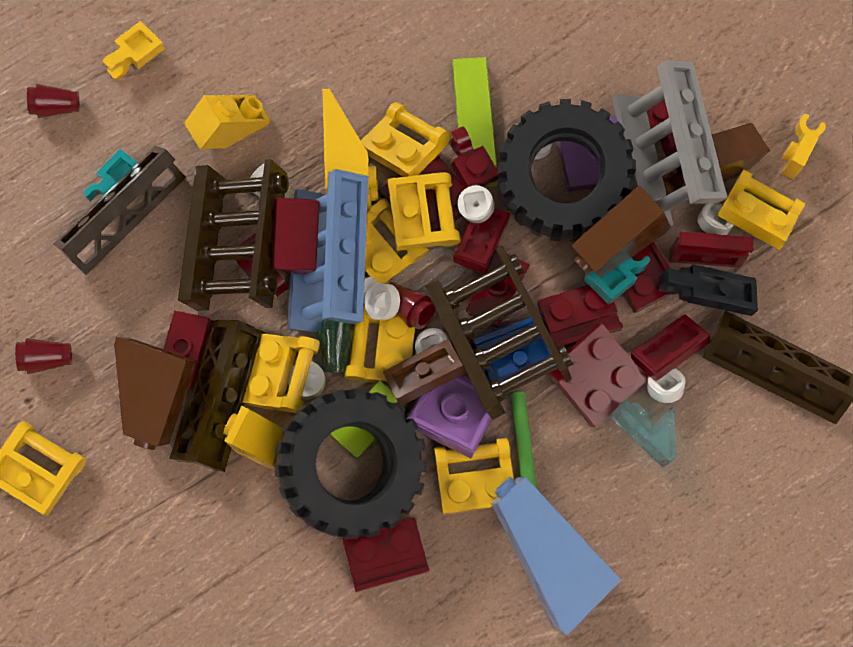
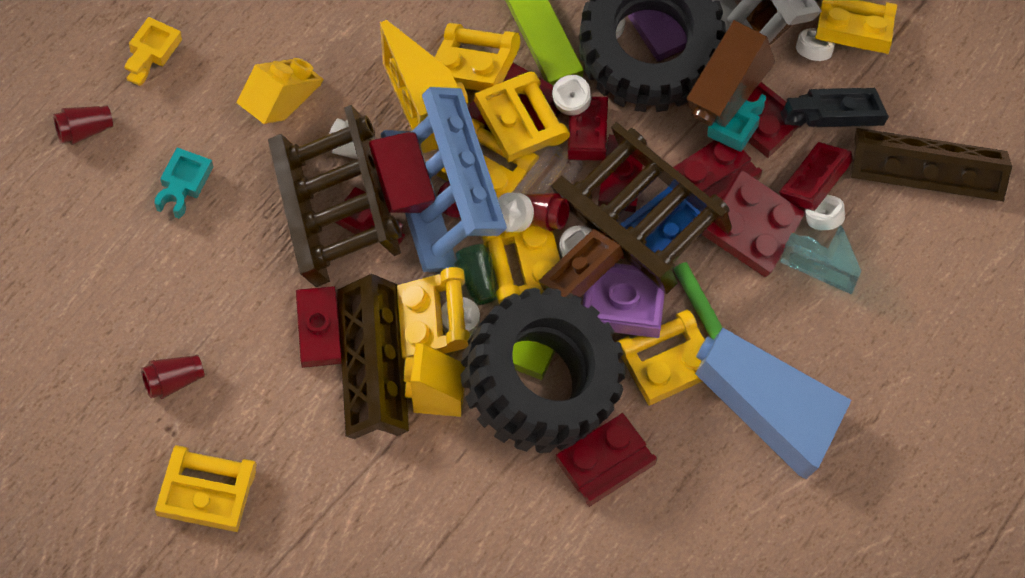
camera: 20 degrees left, 10 degrees down
(115, 203) = (194, 203): dark brown fence -> none
(150, 390) = (306, 368): reddish brown slope -> none
(471, 165) = (550, 59): dark red plate -> none
(711, 249) = (821, 71): dark red plate -> none

